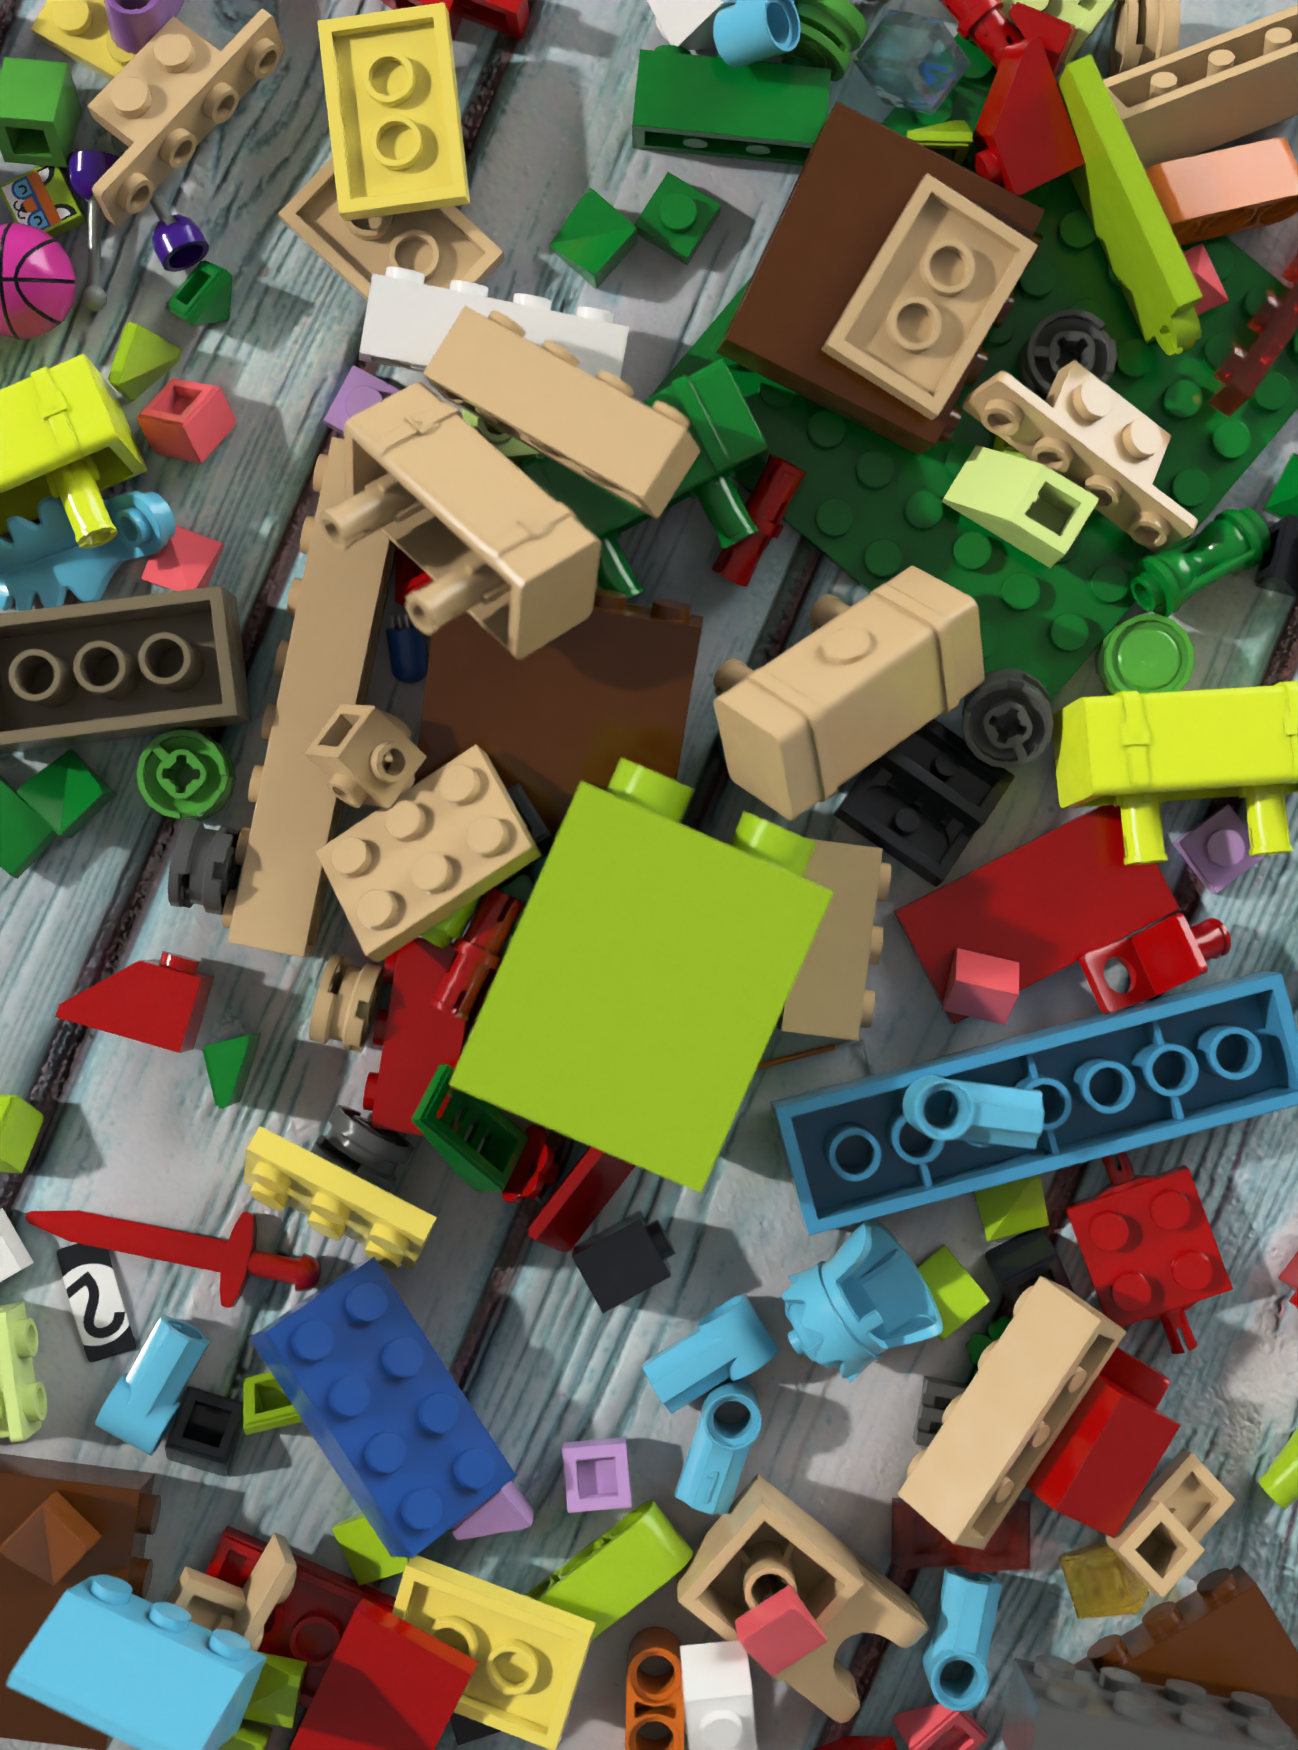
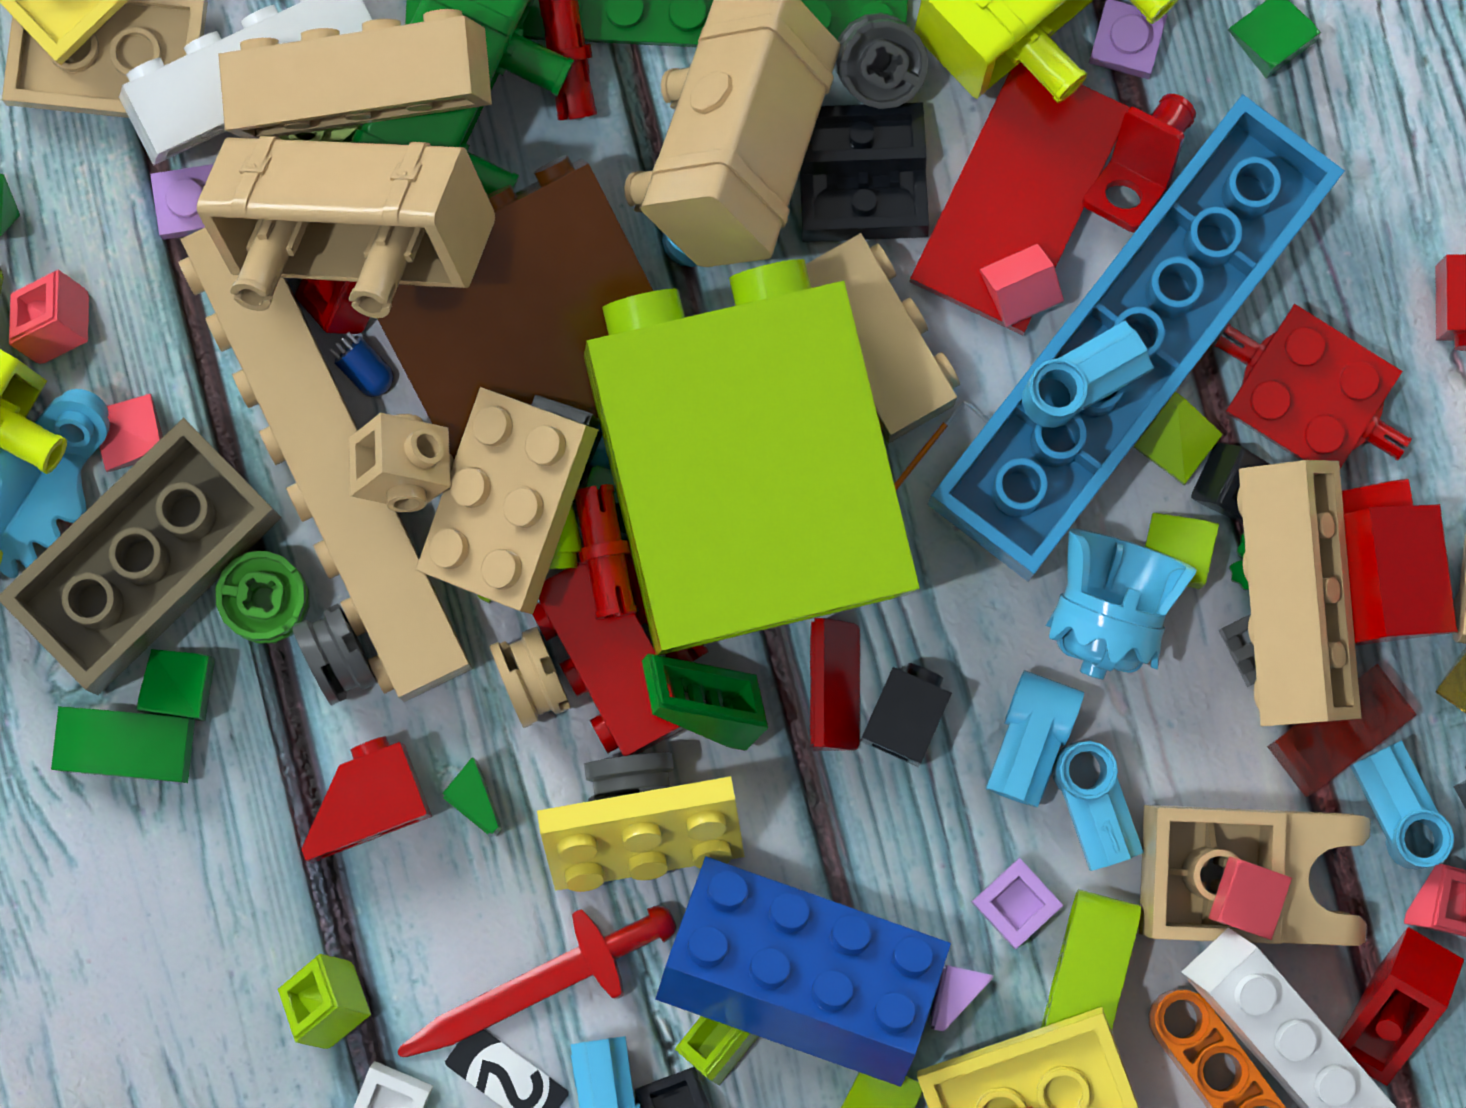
camera: 35 degrees left, 5 degrees down
(533, 1168) = (778, 696): red plant -> none

